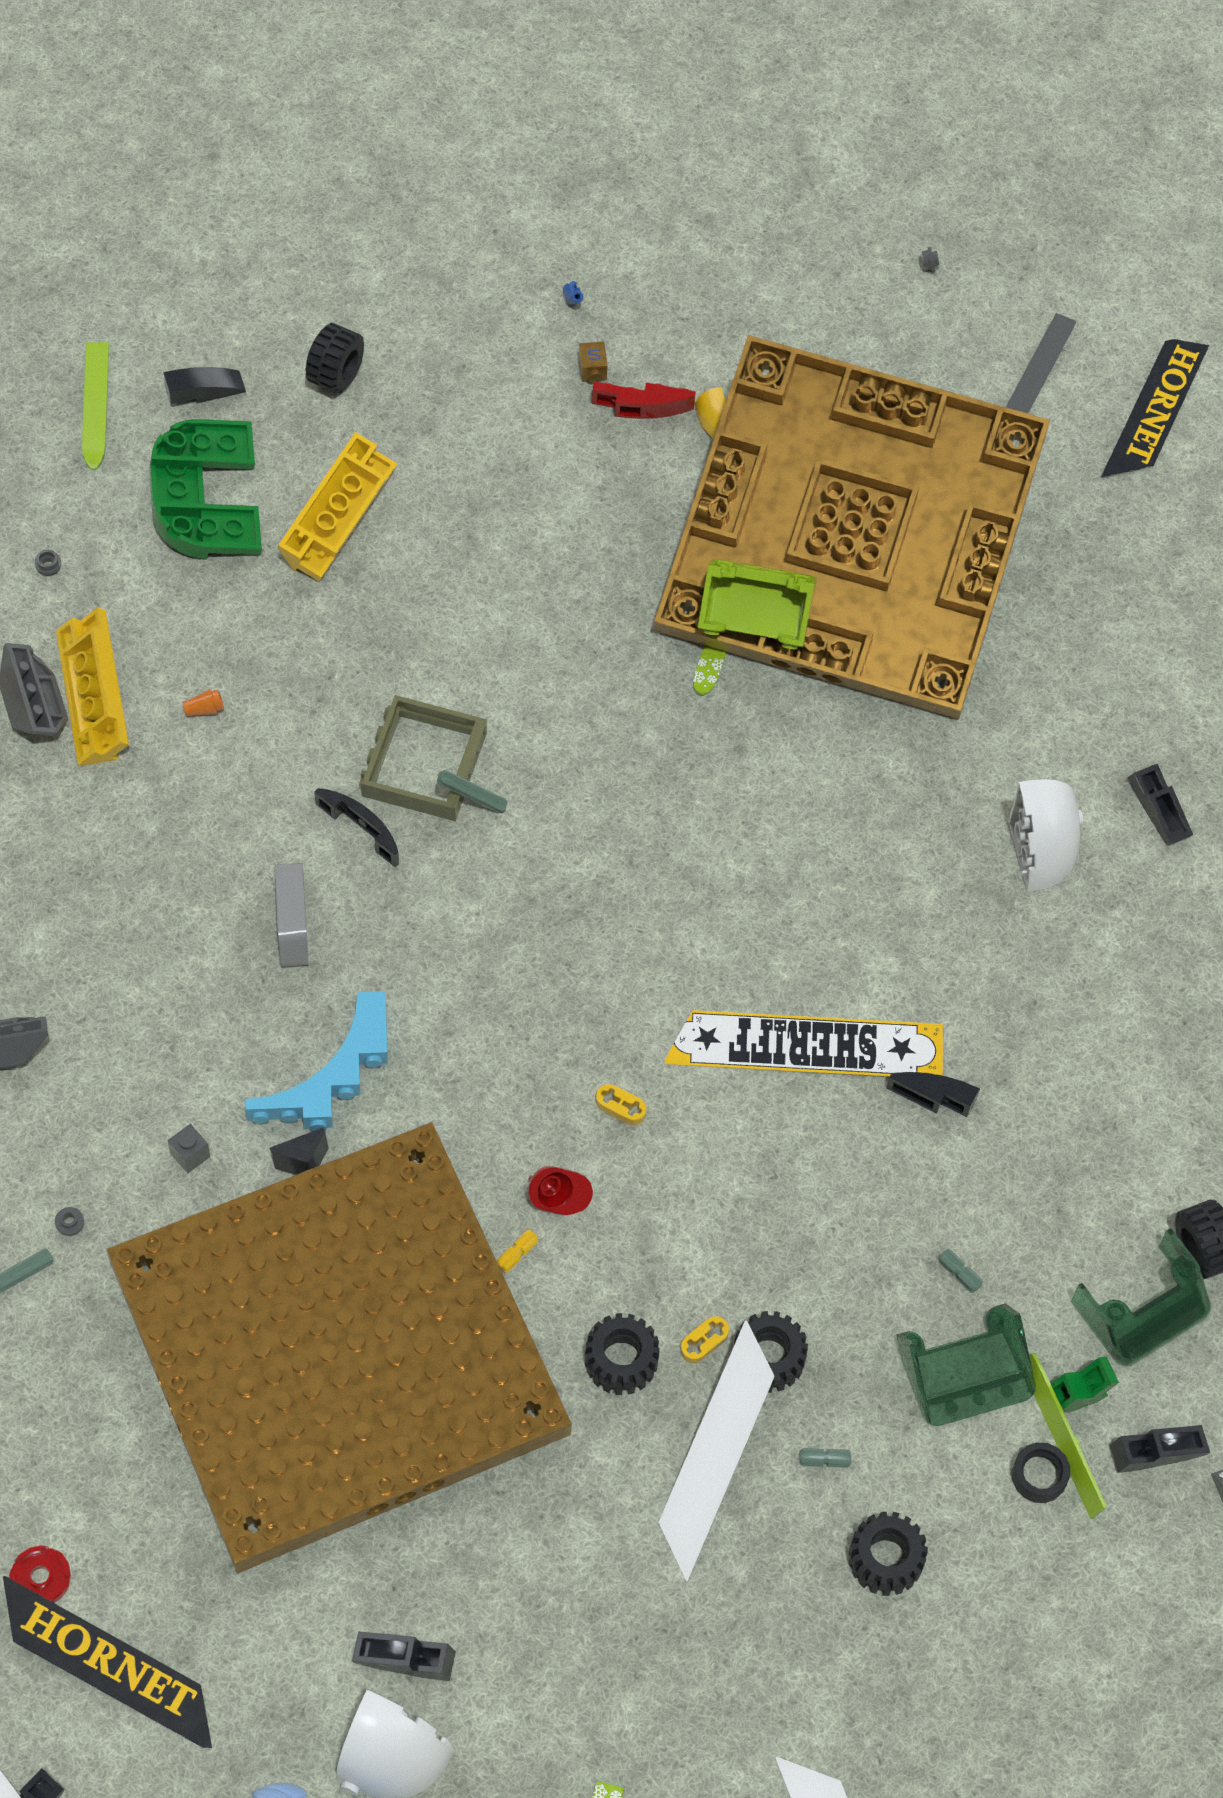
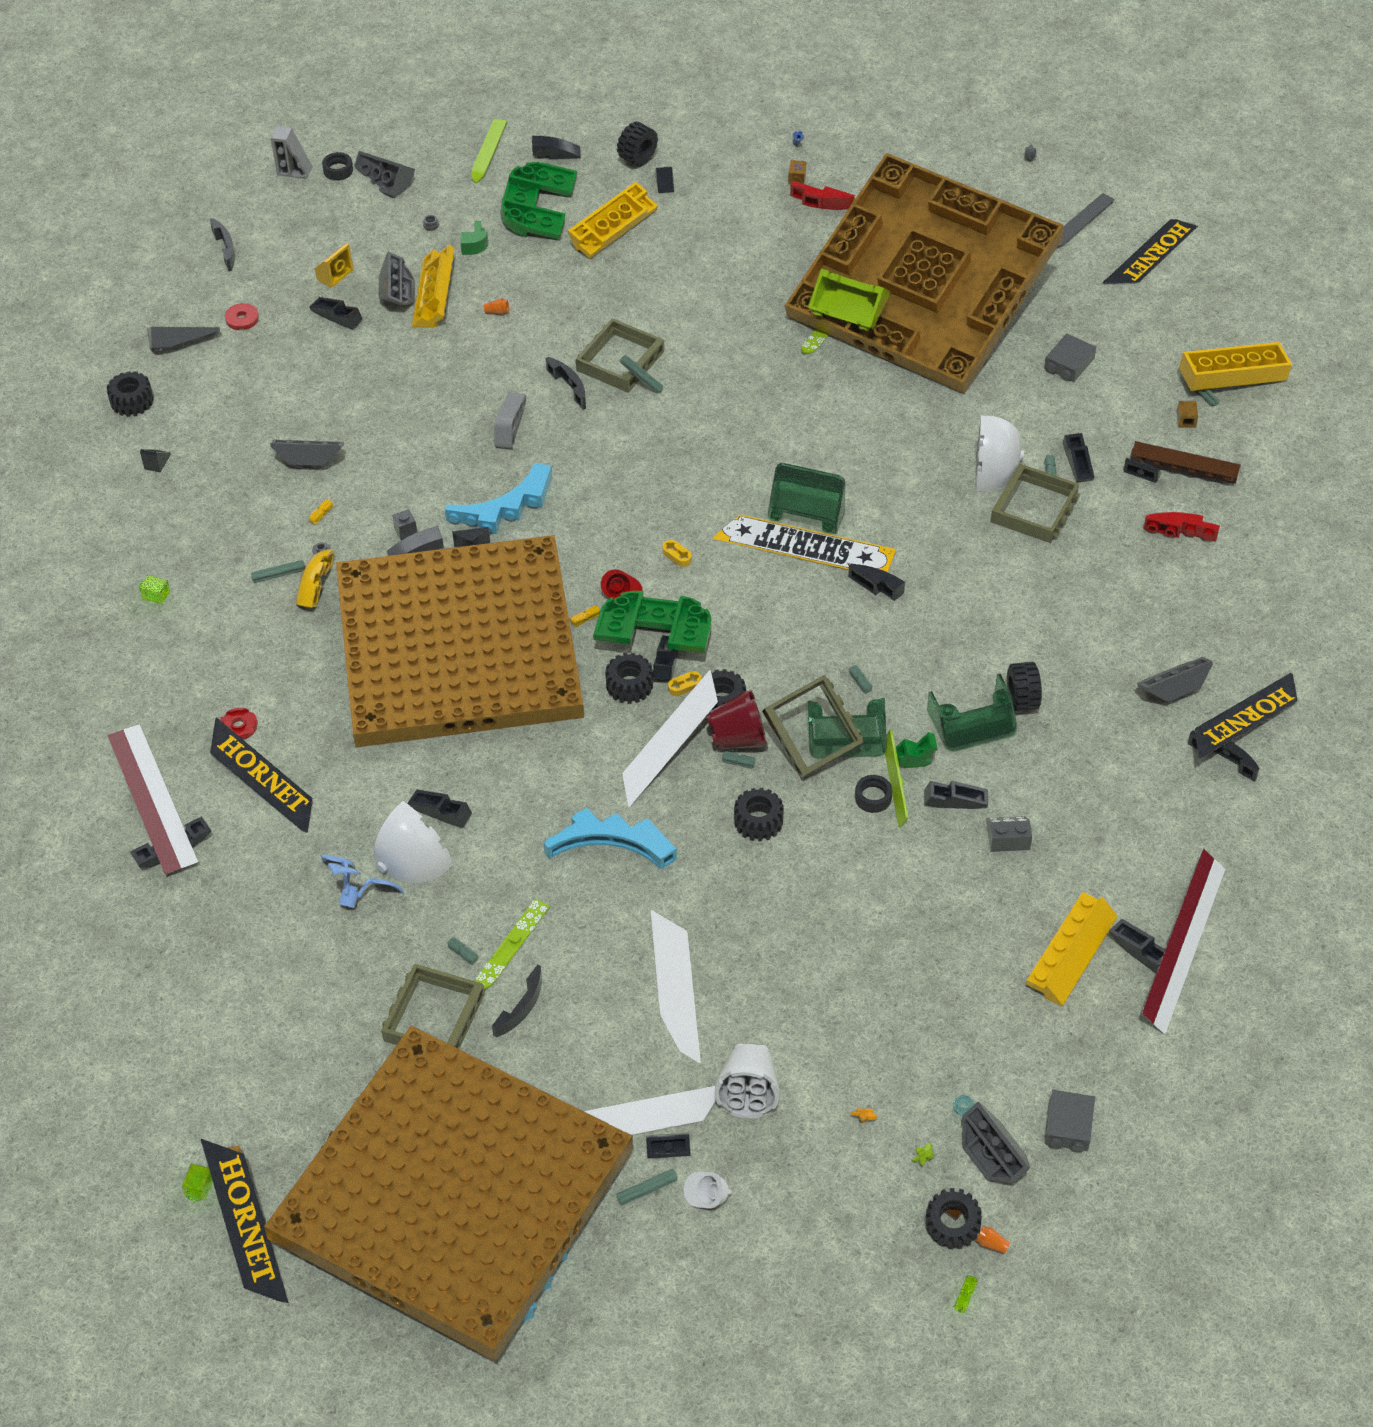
camera: 20 degrees right, 10 degrees down
(43, 1151) = (317, 515): none -> yellow piece
(74, 1272) = (310, 582): none -> yellow brick
(131, 588) = (474, 242): none -> green brick
(218, 1182) = (421, 541): none -> dark grey slope
(391, 411) = (664, 179): none -> black slope
(643, 1642) = (613, 831): none -> medium azure arch
(661, 1221) = (685, 618): none -> green plate
(664, 1300) = (665, 660): none -> black slope
(794, 970) = (808, 495): none -> clear green windscreen
(813, 1404) = (737, 723): none -> dark red cone
(973, 1363) = (836, 703): none -> olive window
(1097, 626) = (1070, 357): none -> dark grey brick
(1126, 835) = (1050, 464): none -> sand green piece
(1132, 858) = (1043, 480): none -> olive window

